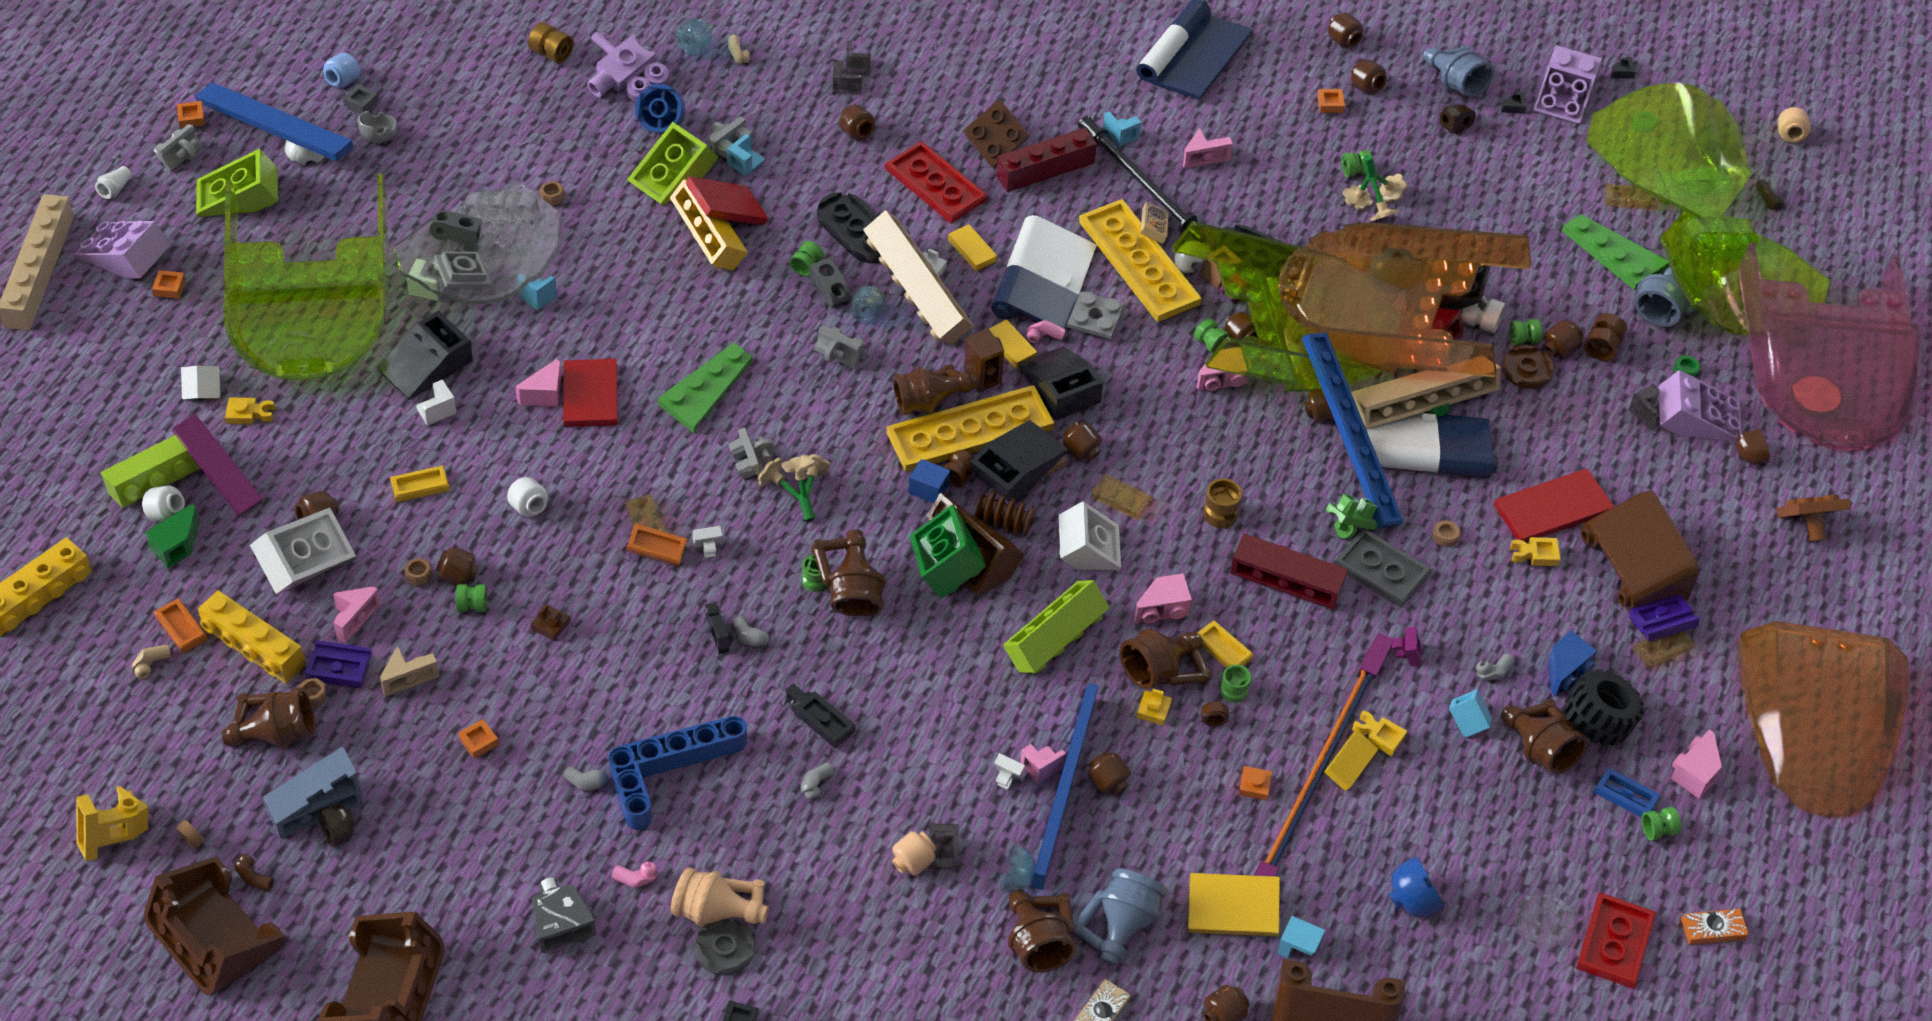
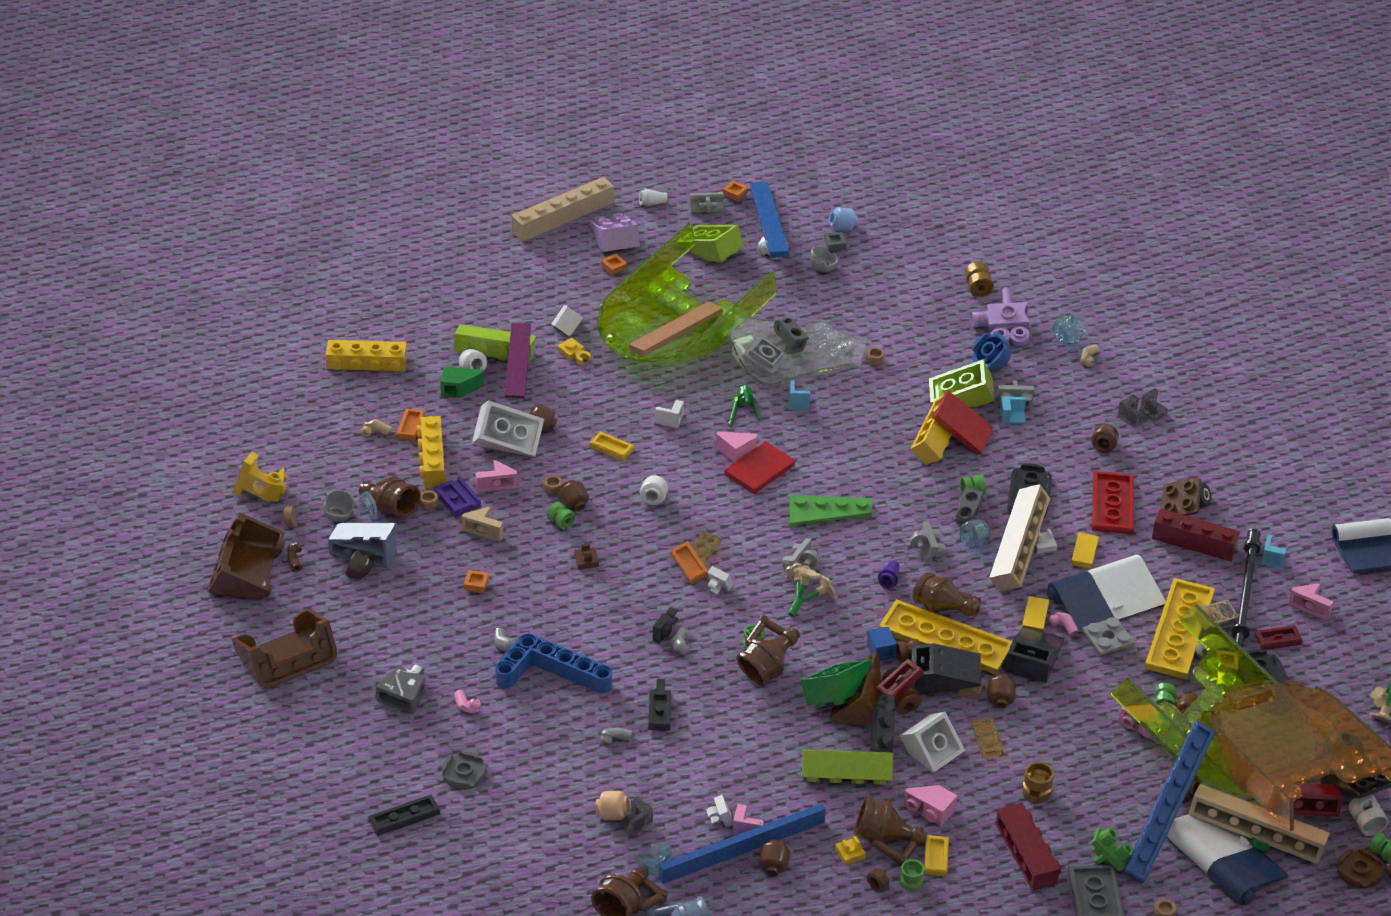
camera: 50 degrees right, 10 degrees down
(231, 778) = (339, 505): none -> light grey hair
(260, 750) = (369, 505): none -> clear light blue tile
(339, 307) = (675, 329): none -> nougat tile
(426, 355) = (695, 386): black slope -> none
(487, 330) = (745, 398): none -> green plant
(711, 898) = (480, 736): light nougat piece -> none
(847, 406) = (889, 575): none -> dark purple cone
(985, 358) = (997, 605): reddish brown brick -> none
(1007, 525) = (902, 682): none -> dark red tile
(1038, 560) = (883, 725): none -> black hinge
(1226, 210) = (1279, 640): none -> dark red tile

